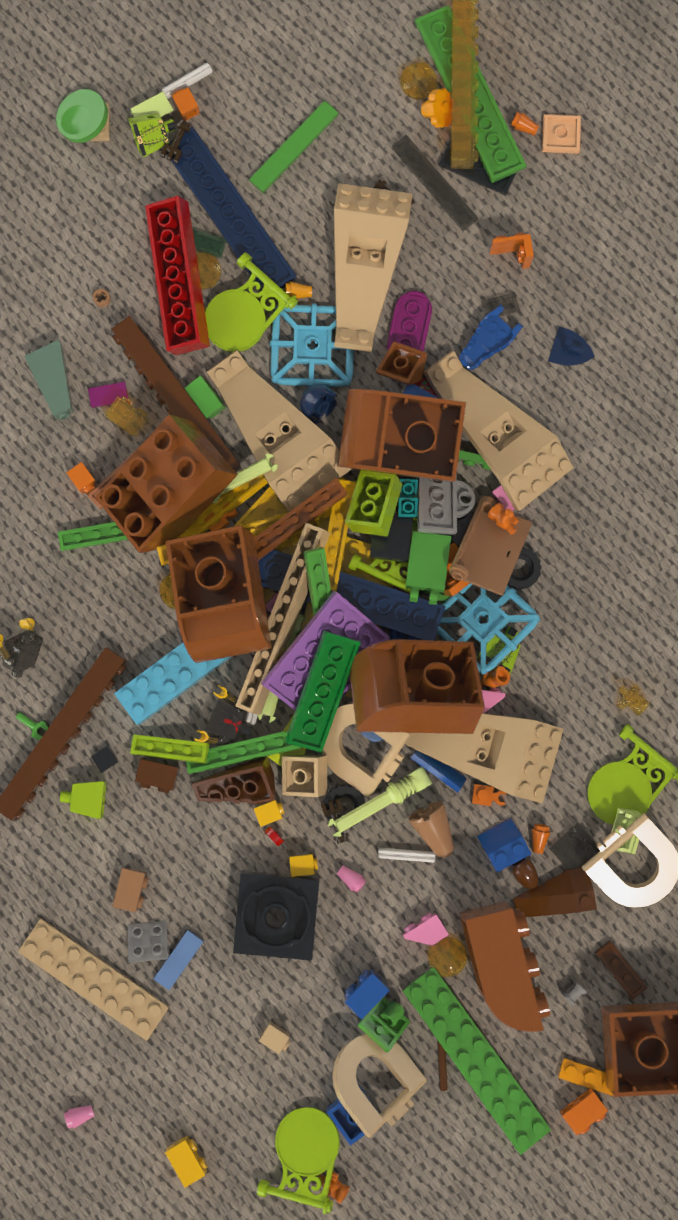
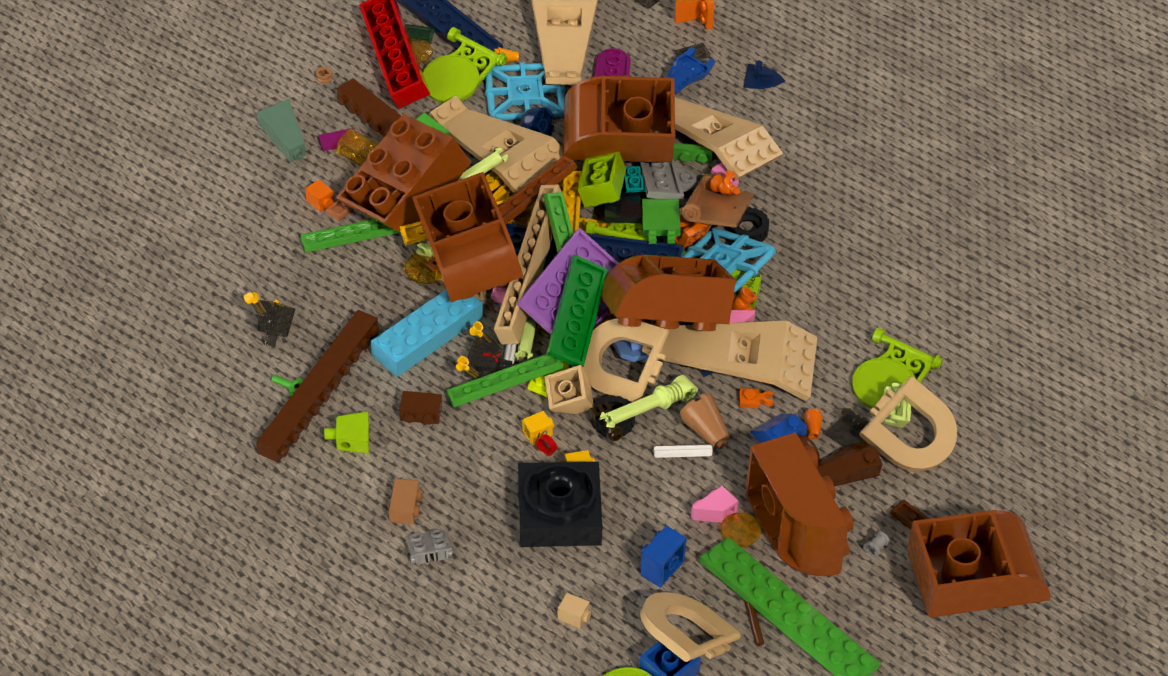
camera: 10 degrees left, 35 degrees down
(93, 979) = (375, 584): tan plate -> none
(104, 759) = (365, 403): black tile -> none
(169, 748) = (432, 383): lime plate -> none
(178, 960) = (462, 559): medium blue tile -> none
(246, 782) = (504, 406): reddish brown wedge -> none
(351, 878) = (631, 473): bright pink cone -> none
(385, 1023) = (681, 582): bright green plate -> none
(440, 770) = (701, 378): blue tile -> none
(584, 1076) = (908, 616): light orange plate -> none
(584, 1112) = (911, 642): orange brick -> none
(632, 699) = (878, 309): clear yellow piece -> none

